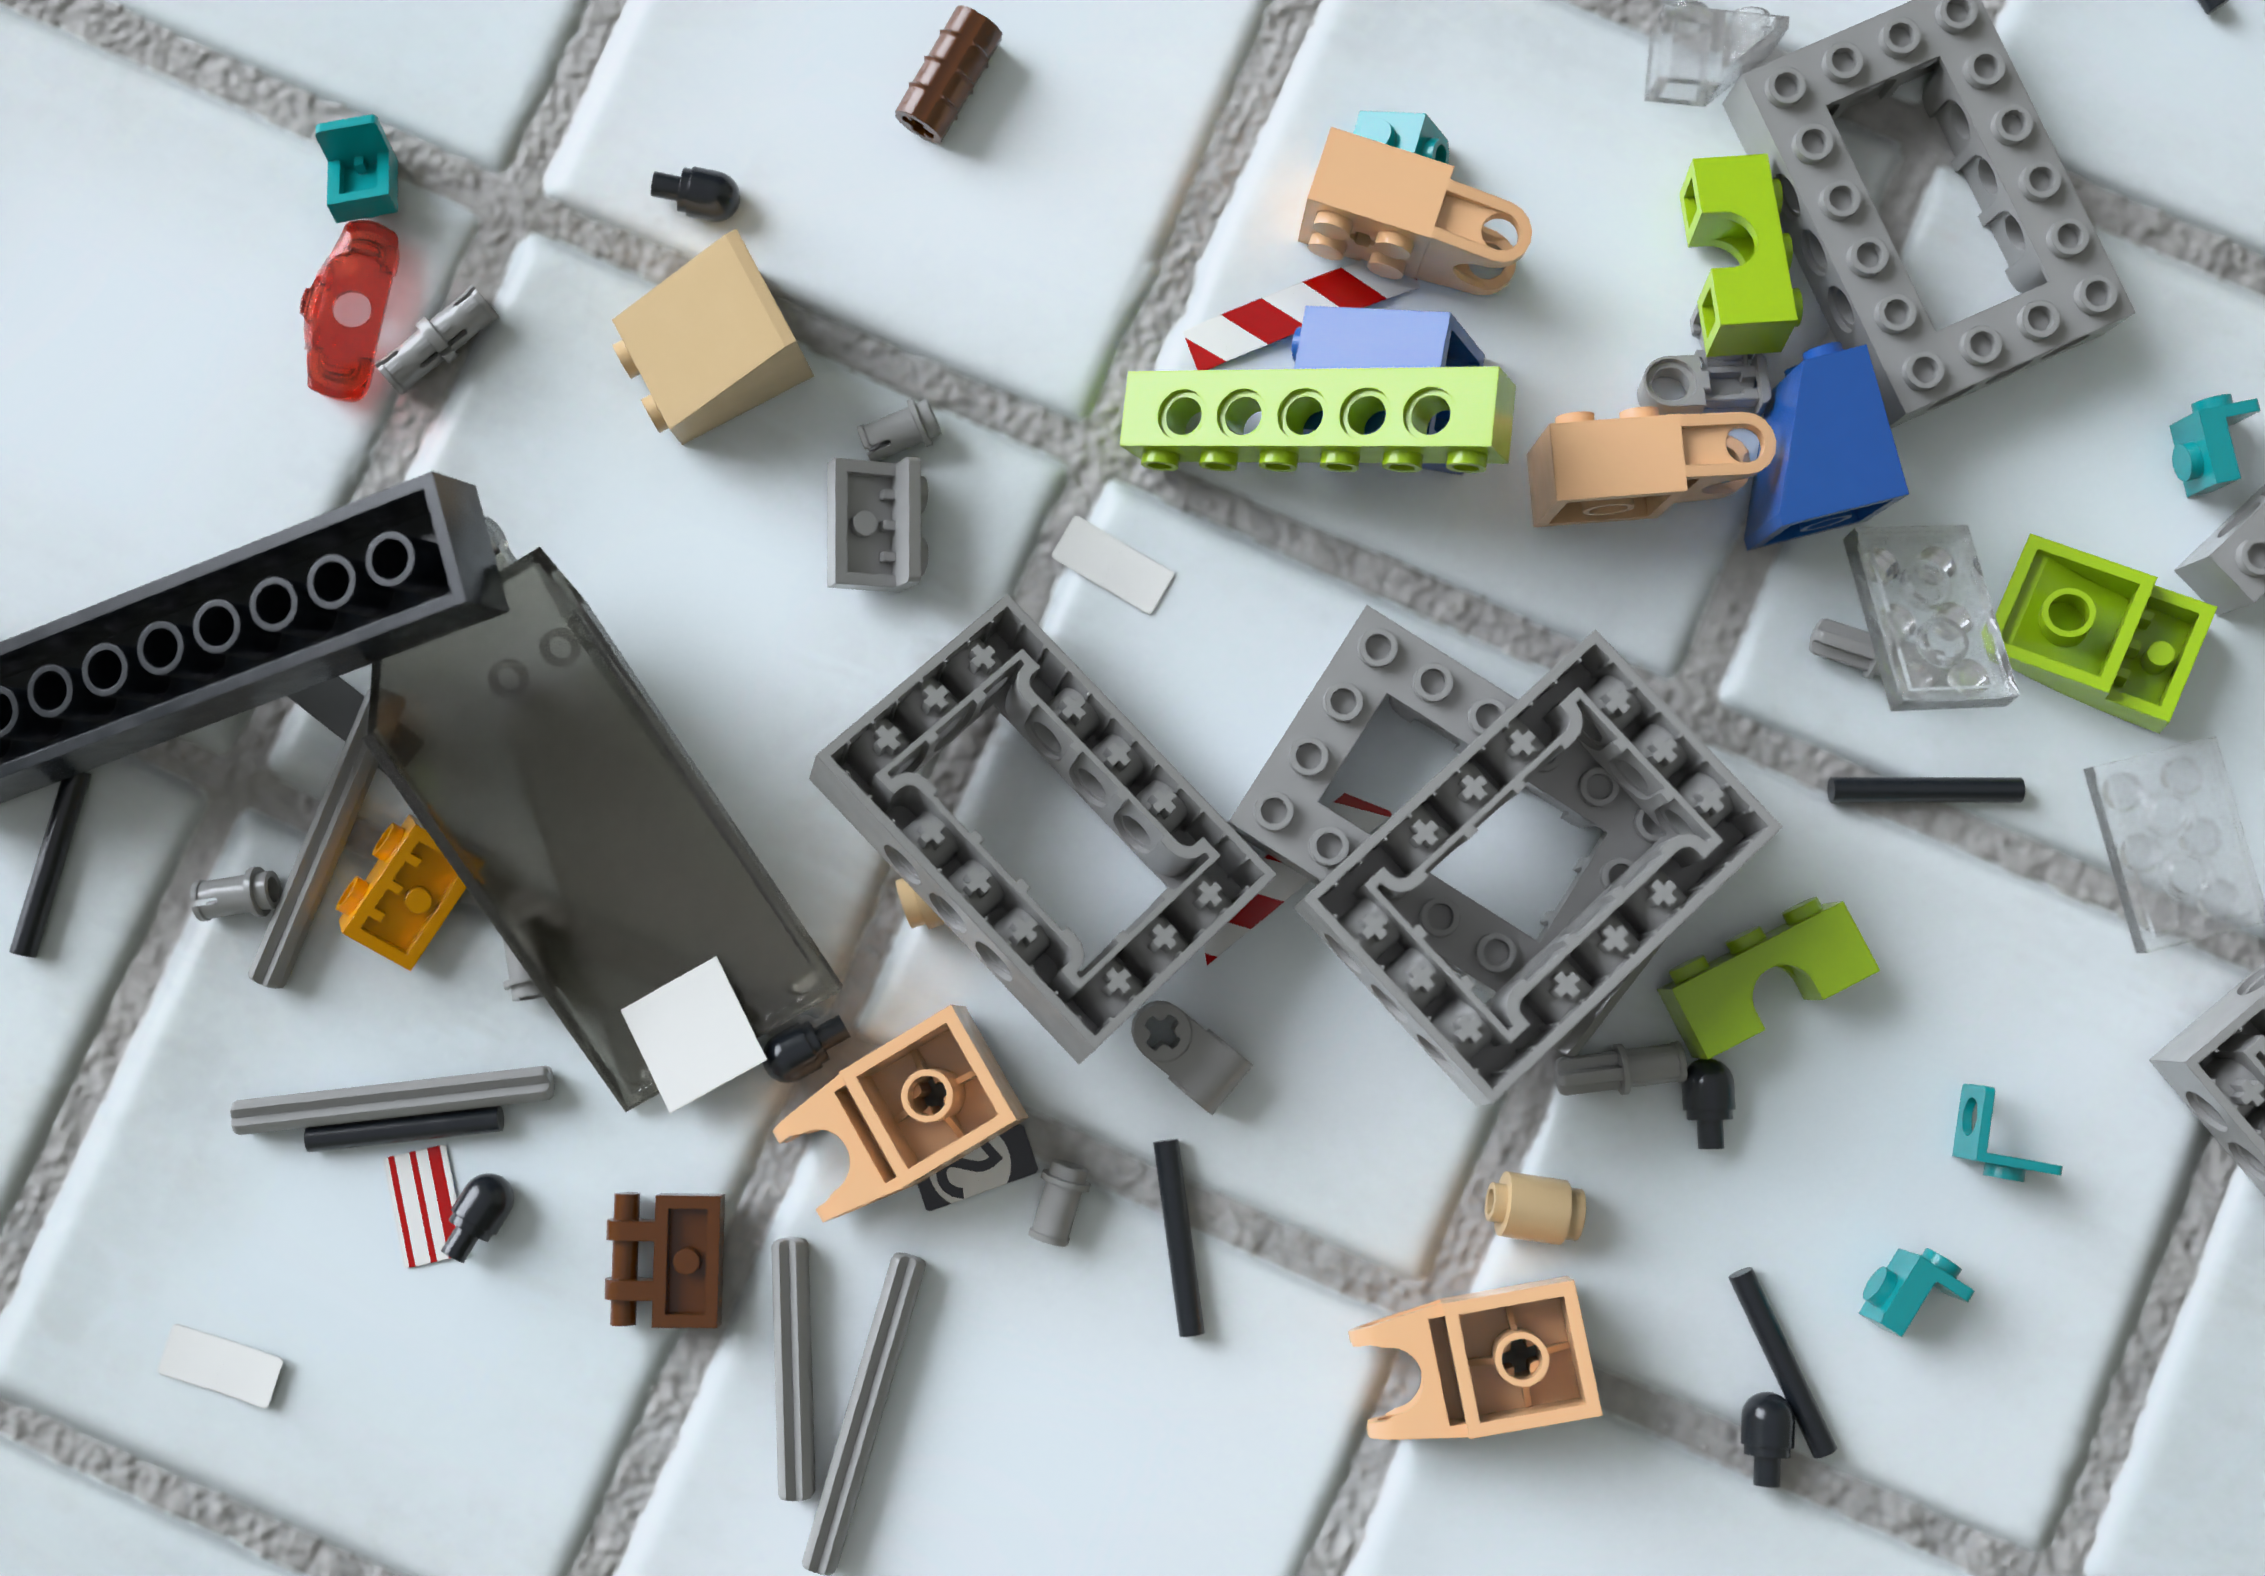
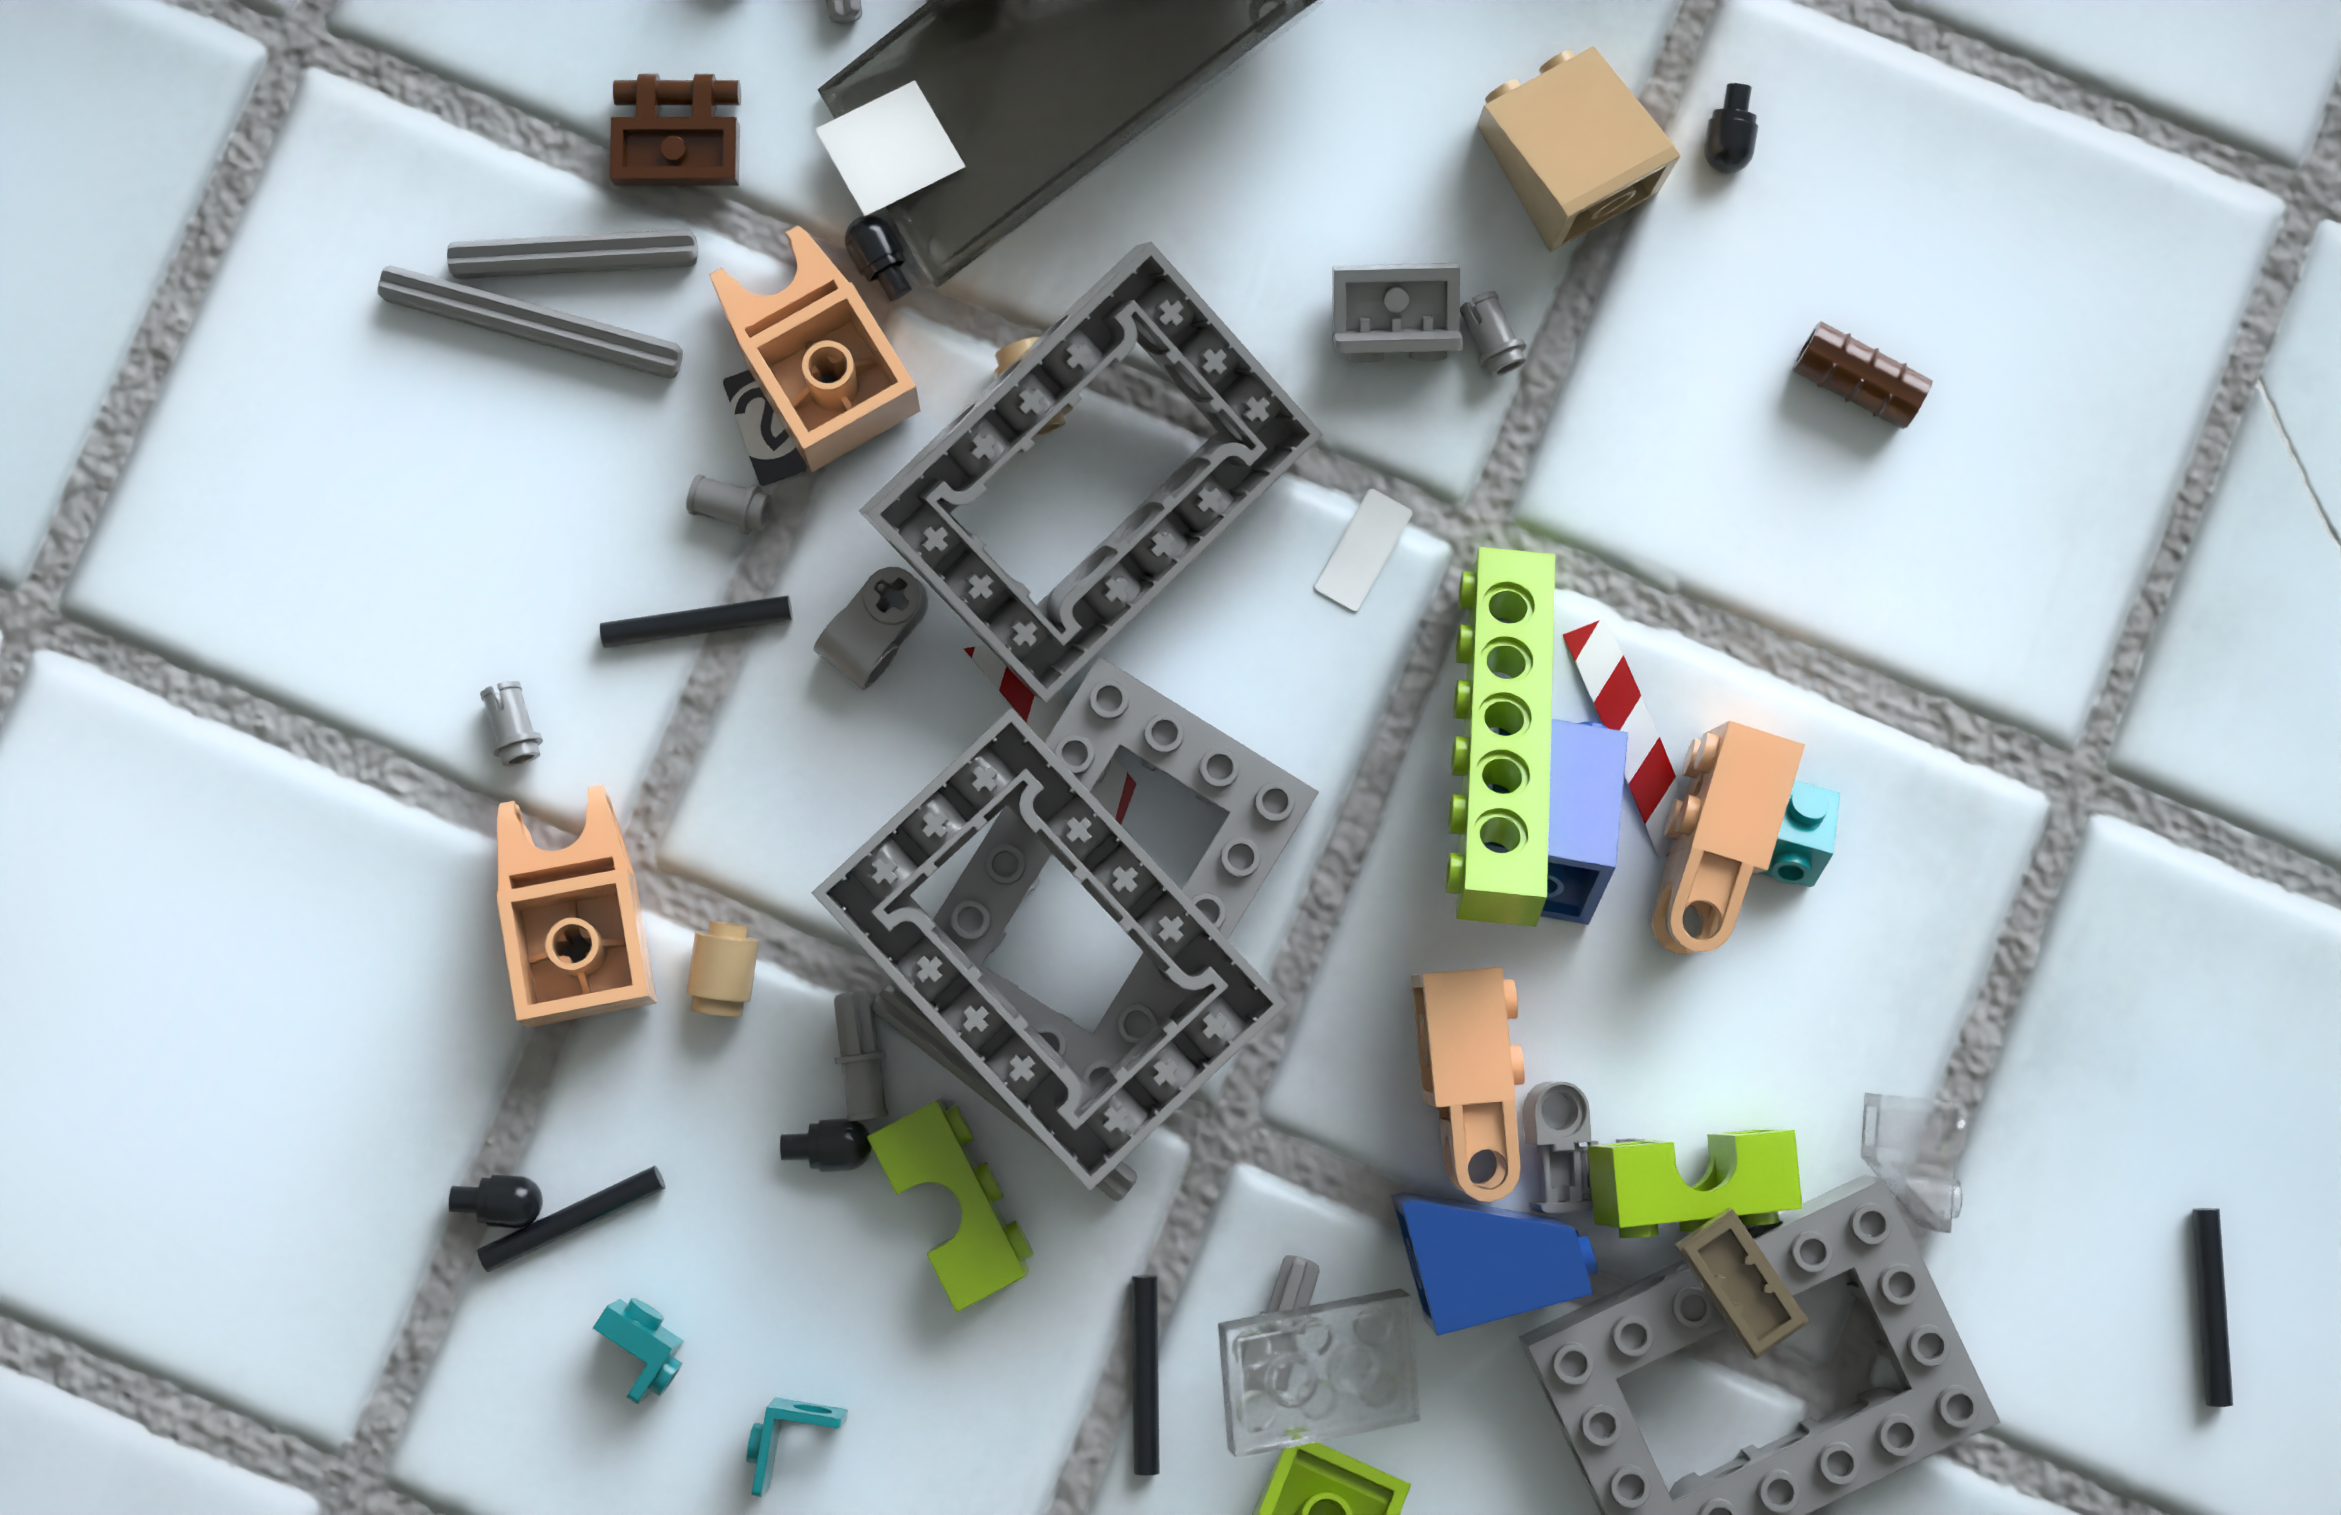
camera: 90 degrees right, 0 degrees up
(1284, 1428) = (511, 724): none -> light grey pin
(1851, 205) = (1741, 1283): none -> dark tan plate

